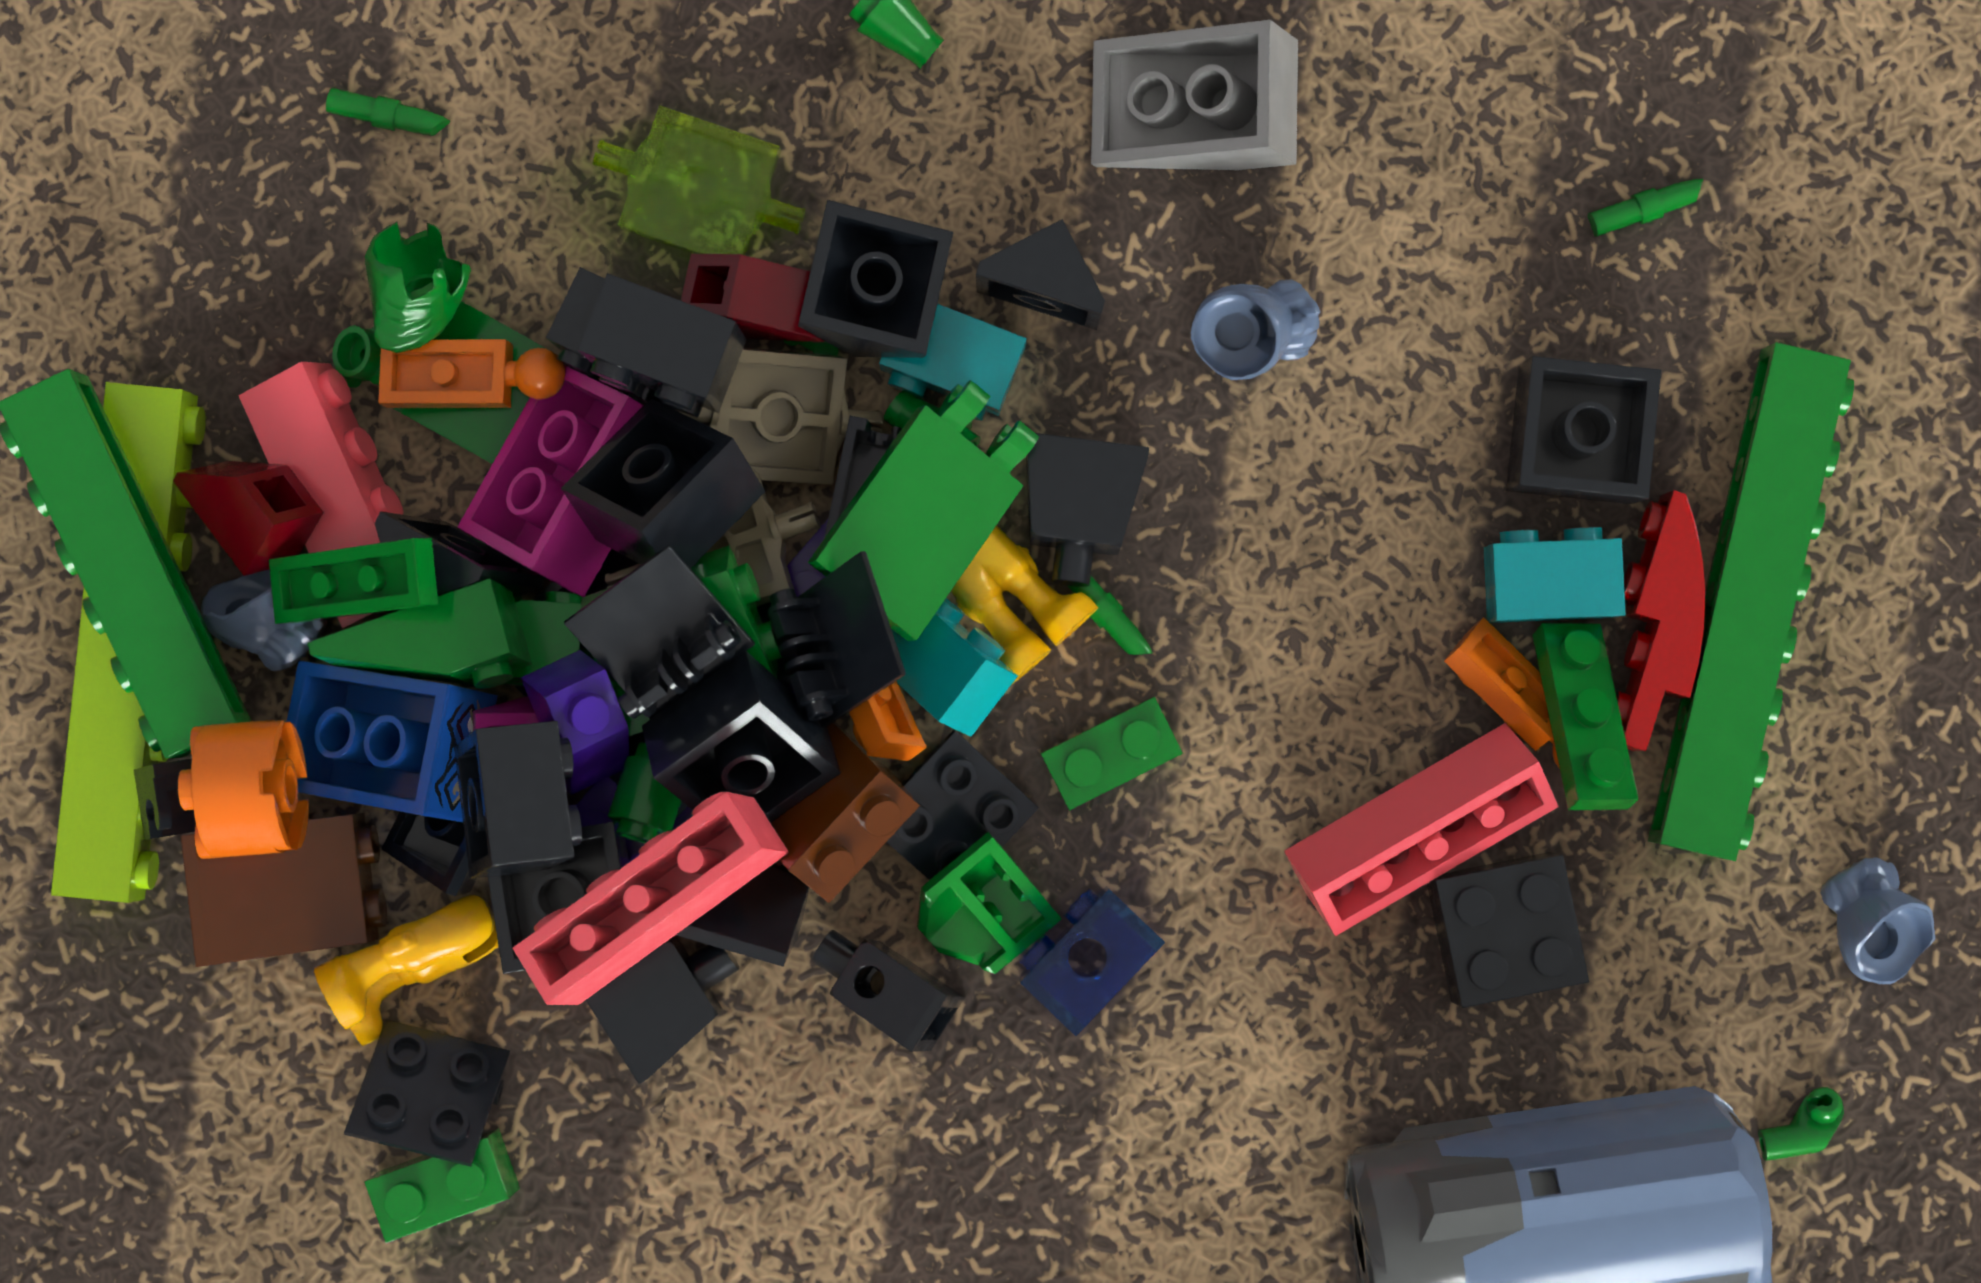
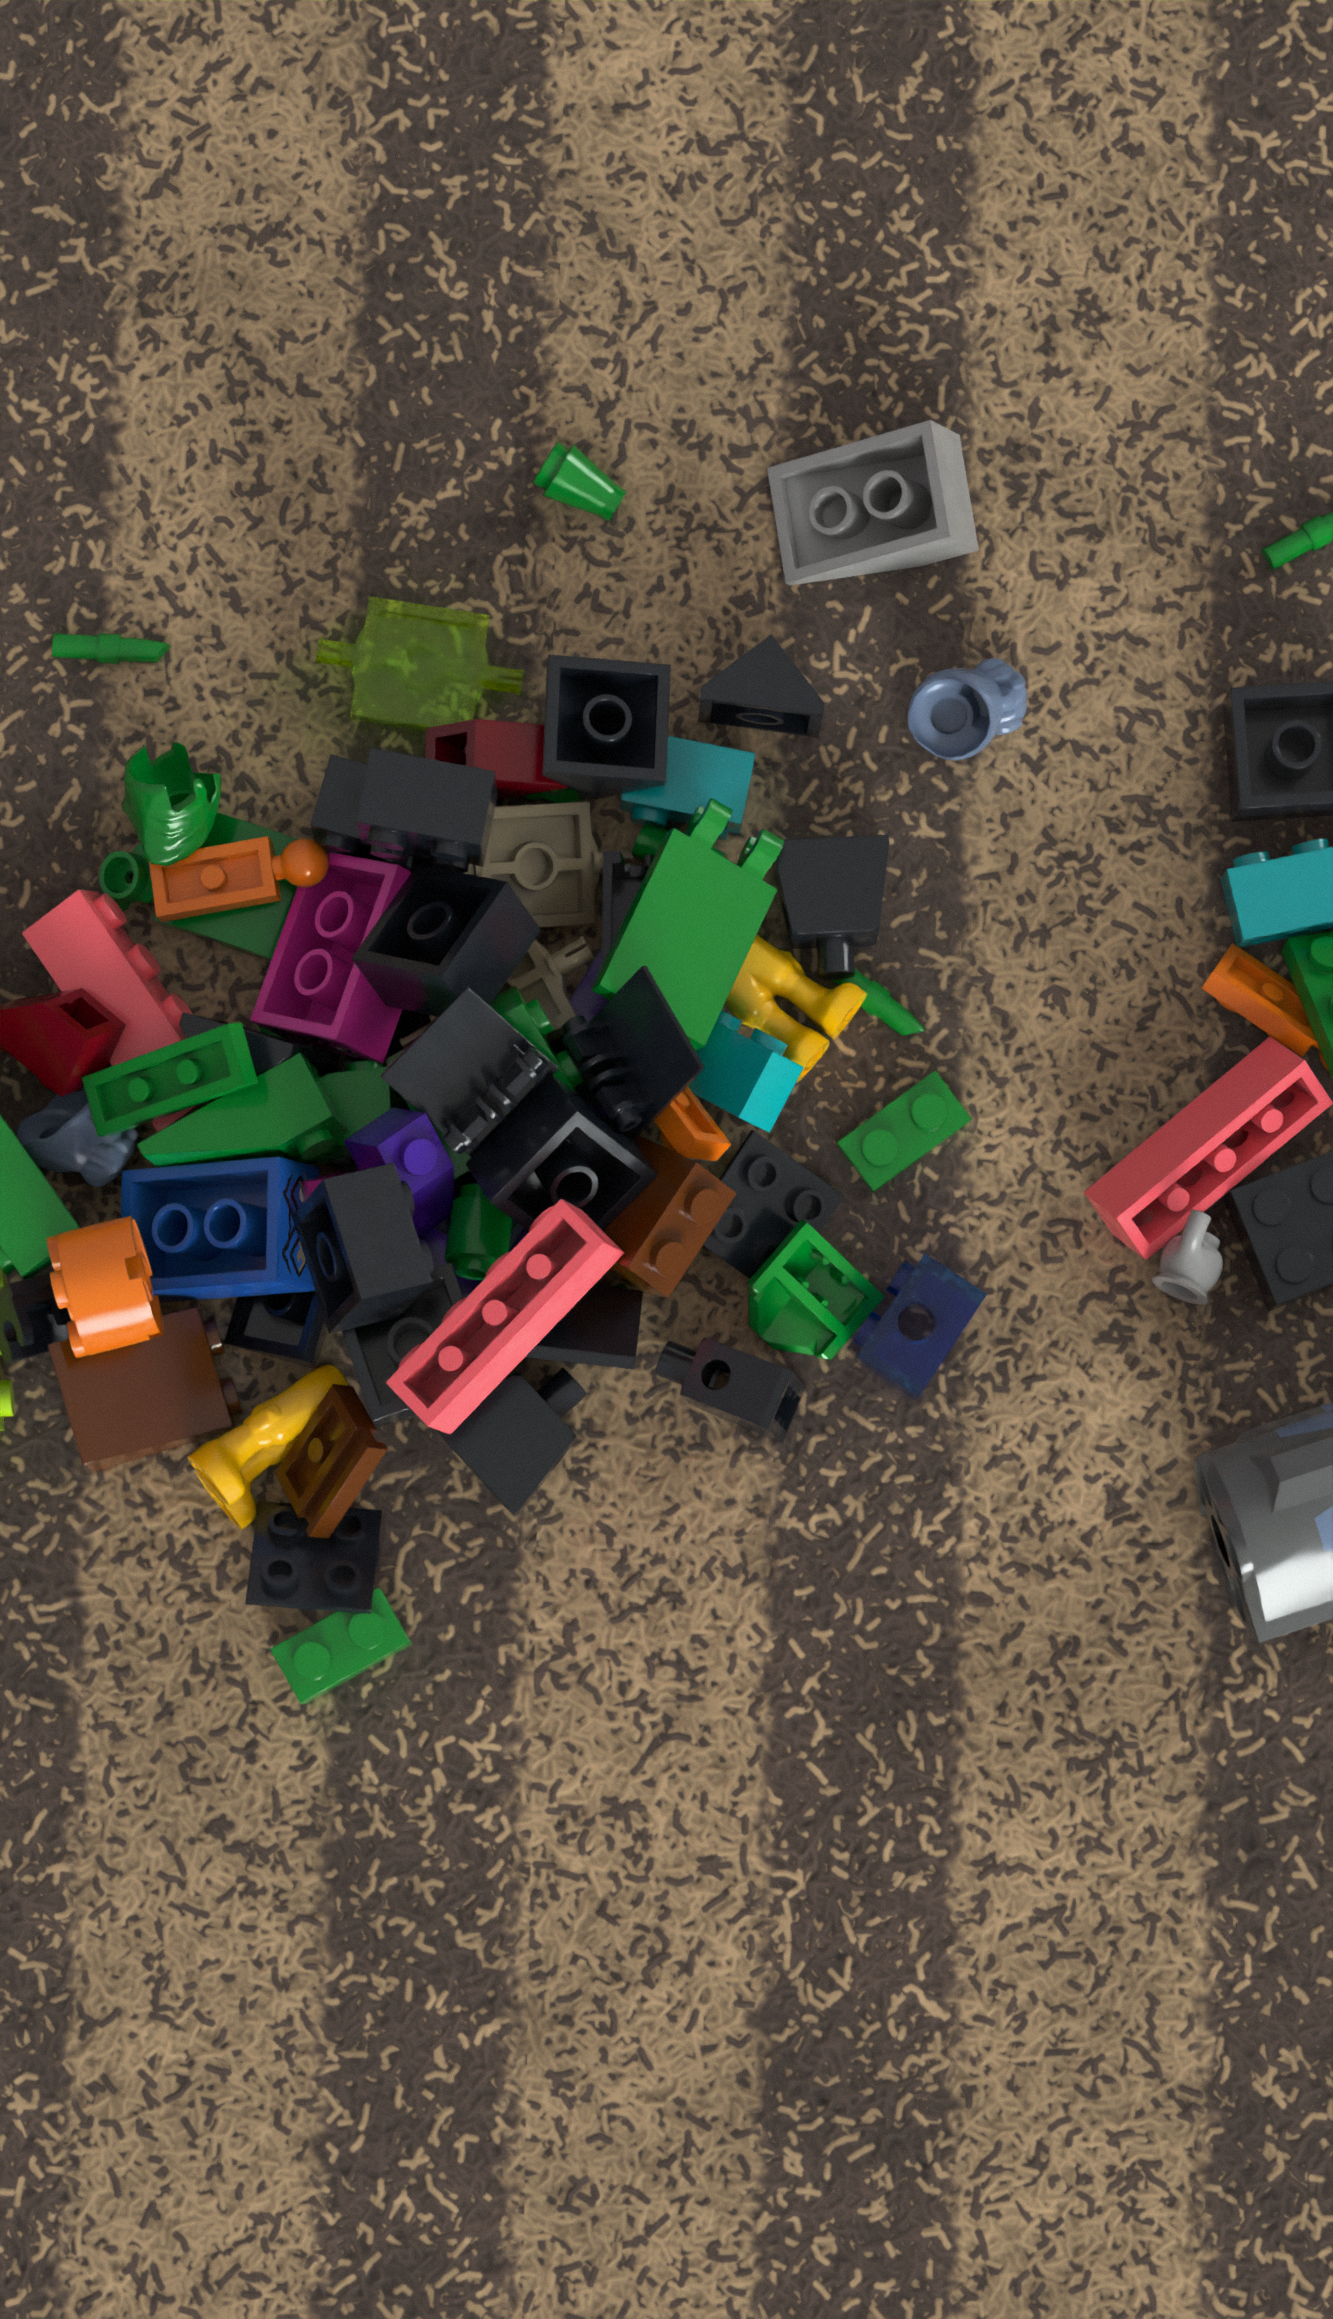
camera: 15 degrees left, 5 degrees down
(458, 1000) = (330, 1461): none -> reddish brown plate
(1381, 948) = (1190, 1262): none -> light grey piece

